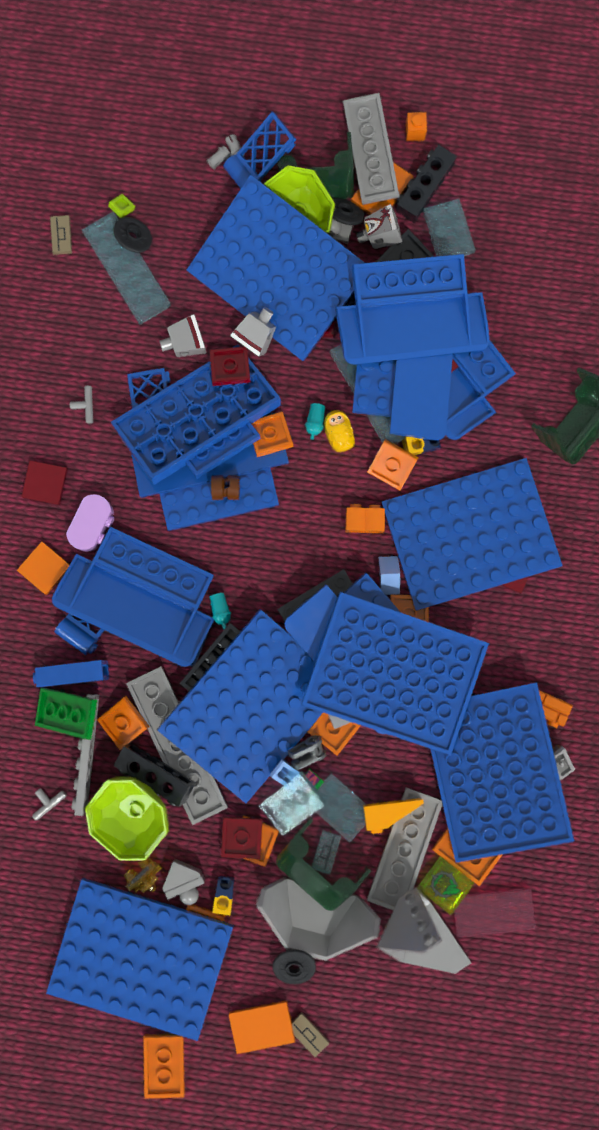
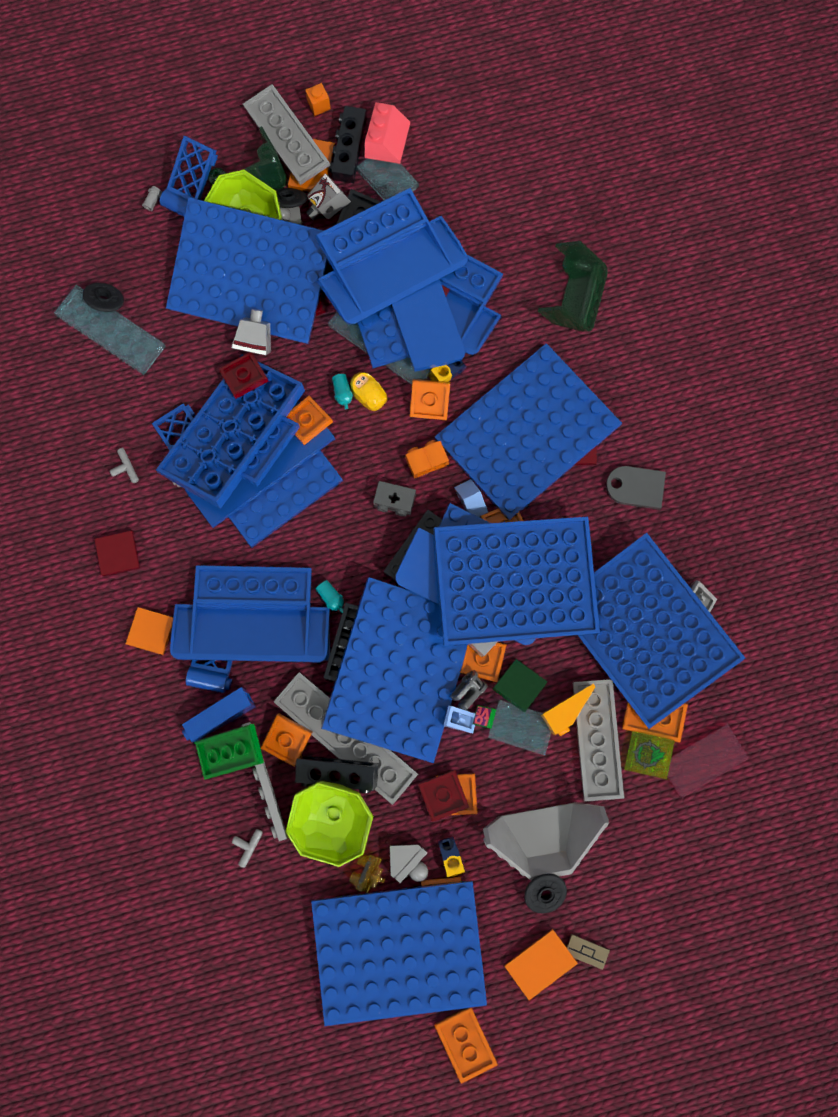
camera: 25 degrees left, 5 degrees down
(61, 235) = (36, 325): dark tan tile -> none
(90, 523) = (176, 570): lavender brick -> none
(121, 206) = (81, 276): lime tile -> none
(184, 338) = (191, 368): light grey torso -> none
(218, 486) = (287, 483): reddish brown wheel -> none
(233, 146) = (162, 183): light grey pin -> none
(292, 803) = (476, 742): clear light blue plate -> none
(292, 864) = (522, 804): clear green windscreen -> none
(326, 852) = (527, 774): clear light blue tile -> none
(329, 545) = (386, 492): none -> dark grey brick
(356, 769) = (520, 685): none -> dark green tile
(421, 937) = (648, 812): light grey piece -> none
(466, 189) = (386, 134): none -> coral slope
(550, 632) = (638, 487): none -> dark grey tile
(555, 710) = (676, 552): orange brick -> none

